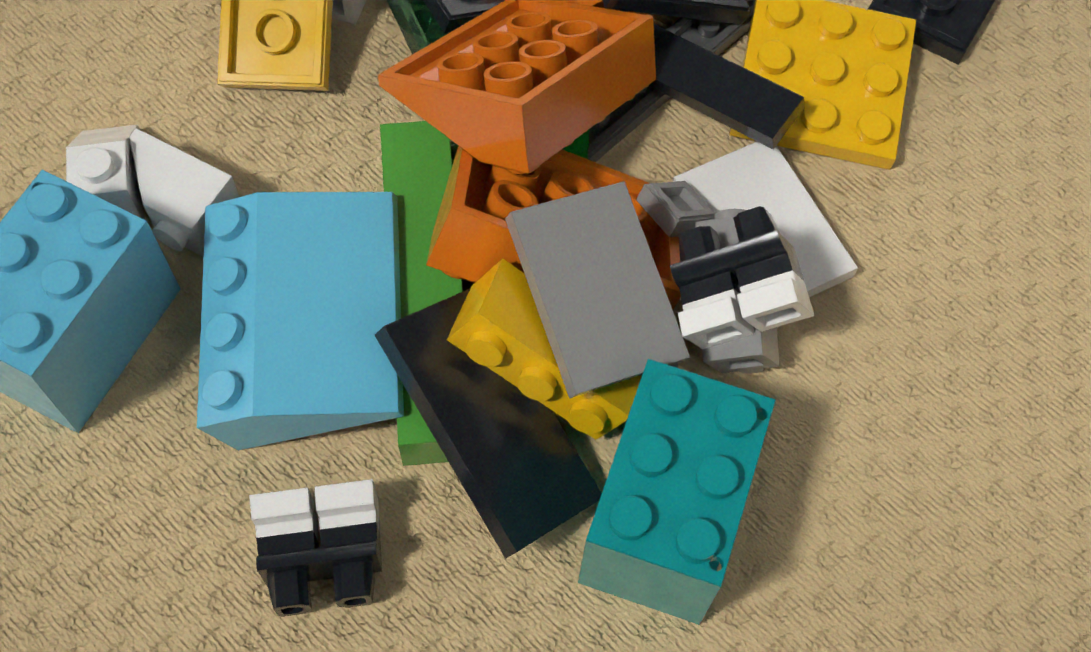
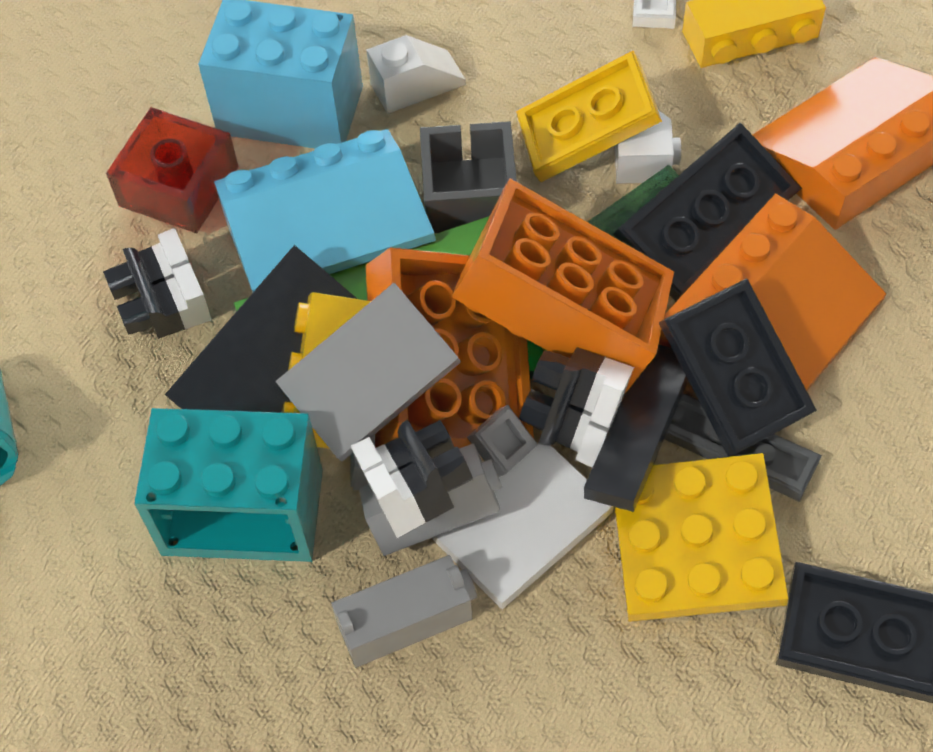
camera: 80 degrees right, 5 degrees down
(141, 482) = (172, 169): none -> clear red brick
(177, 191) = (407, 110): white slope -> none
(316, 133) = (465, 189): none -> dark grey piece
(666, 113) = (584, 403): none -> black hips
(851, 363) = (404, 610): none -> light grey brick

